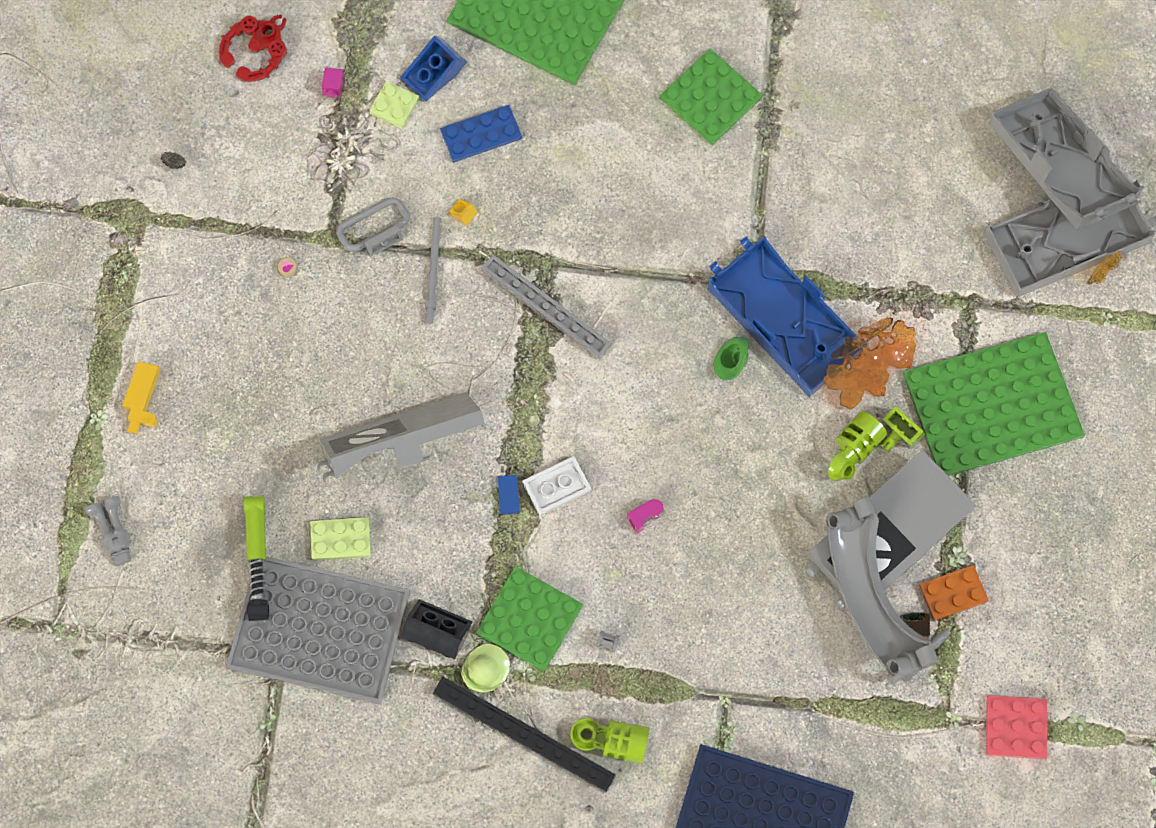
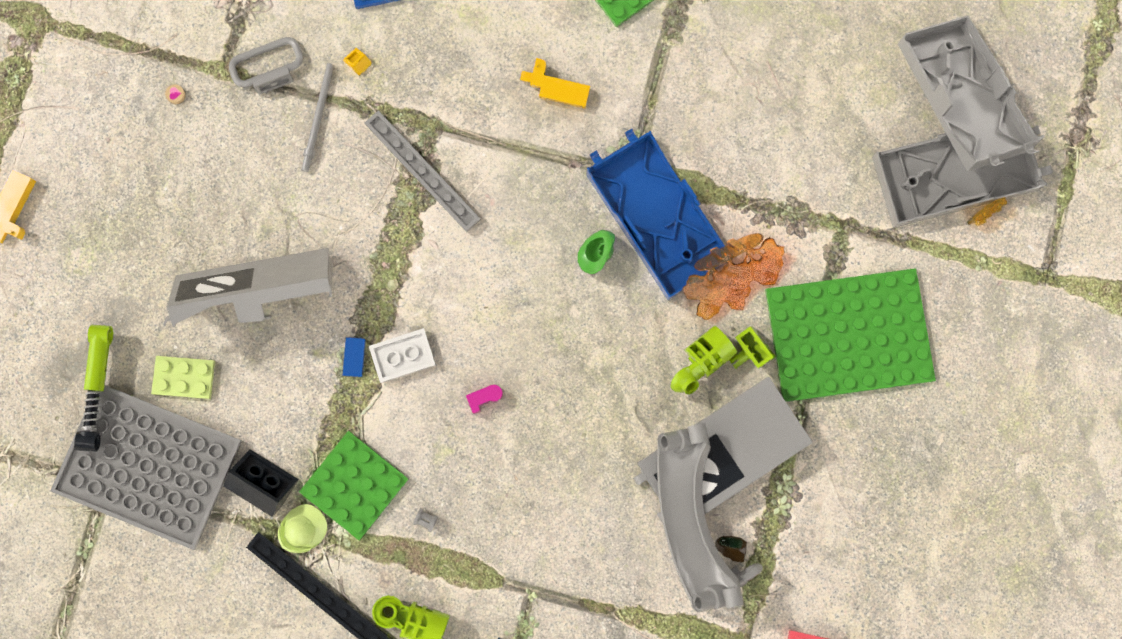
camera: 10 degrees right, 10 degrees up
(664, 210) = (555, 88): none -> yellow piece
(953, 593) = (775, 521): orange plate -> none

